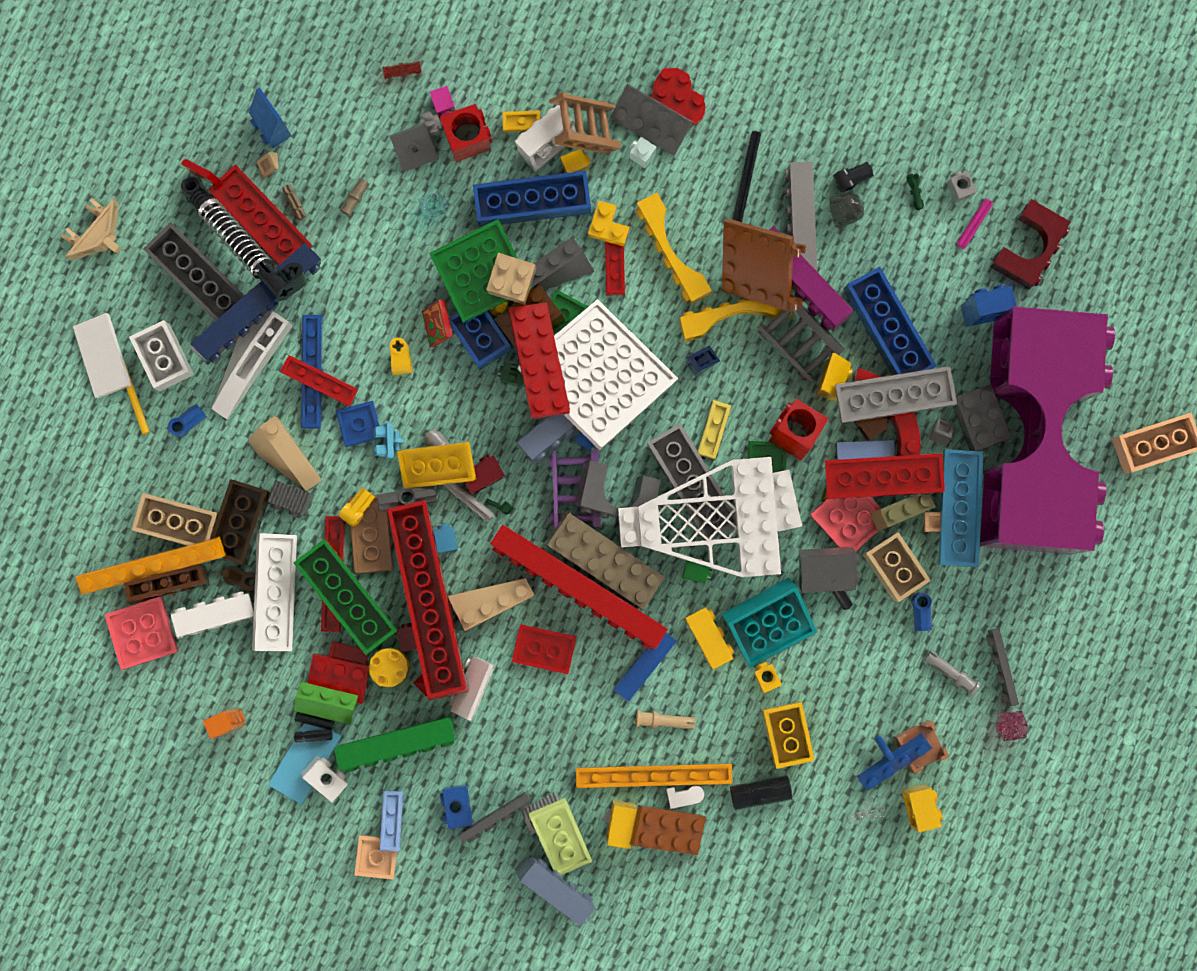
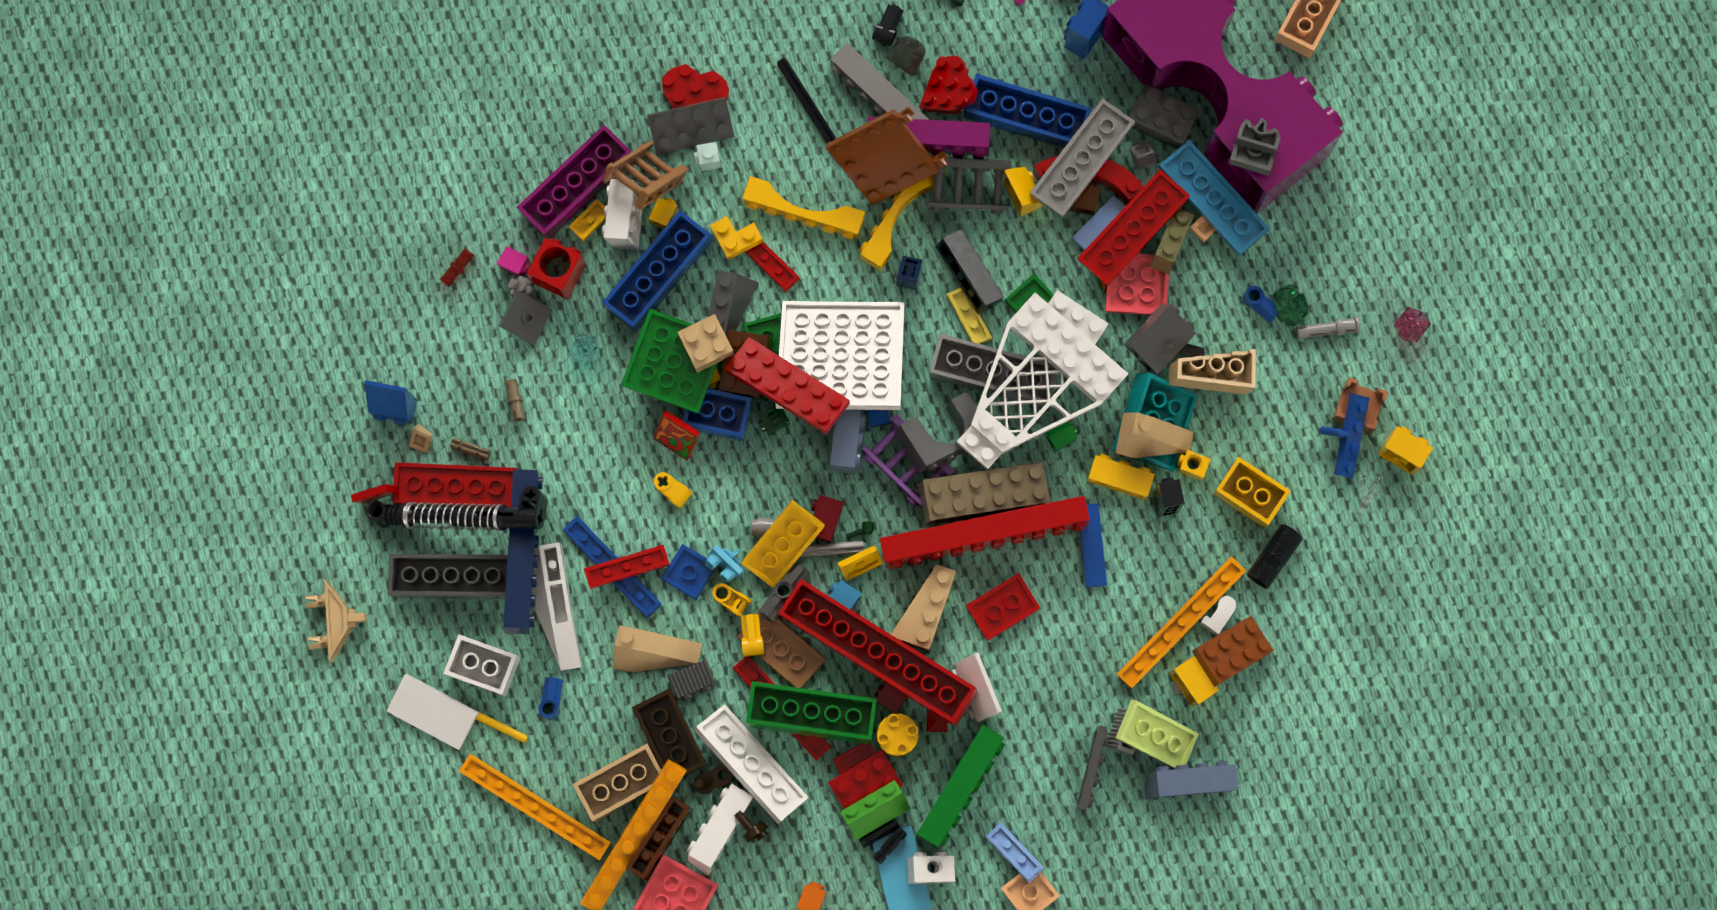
camera: 35 degrees left, 5 degrees down
(108, 483) = (535, 807): none -> light orange plate
(228, 639) = (753, 832): none -> dark brown piece
(368, 471) = (732, 600): none -> yellow piece
(460, 795) = (1066, 794): blue brick -> none
(477, 527) = (860, 563): none -> yellow plate
(531, 84) = (572, 183): none -> magenta brick
(655, 720) = (1141, 579): tan pin -> none
(726, 683) = (1168, 497): none -> black brick
(743, 399) = (969, 271): none -> brick
(754, 631) = (1149, 436): none -> tan wedge
(810, 419) = (1034, 238): red brick -> none
(846, 632) = (1219, 372): none -> tan wedge
(852, 259) = (949, 87): none -> red plate
(896, 567) = (1209, 288): tan brick -> none
(939, 624) = (1285, 312): none -> clear green plate
(1004, 674) = (1355, 284): dark grey plate -> none
(1021, 503) = (1255, 147): none -> dark grey plate

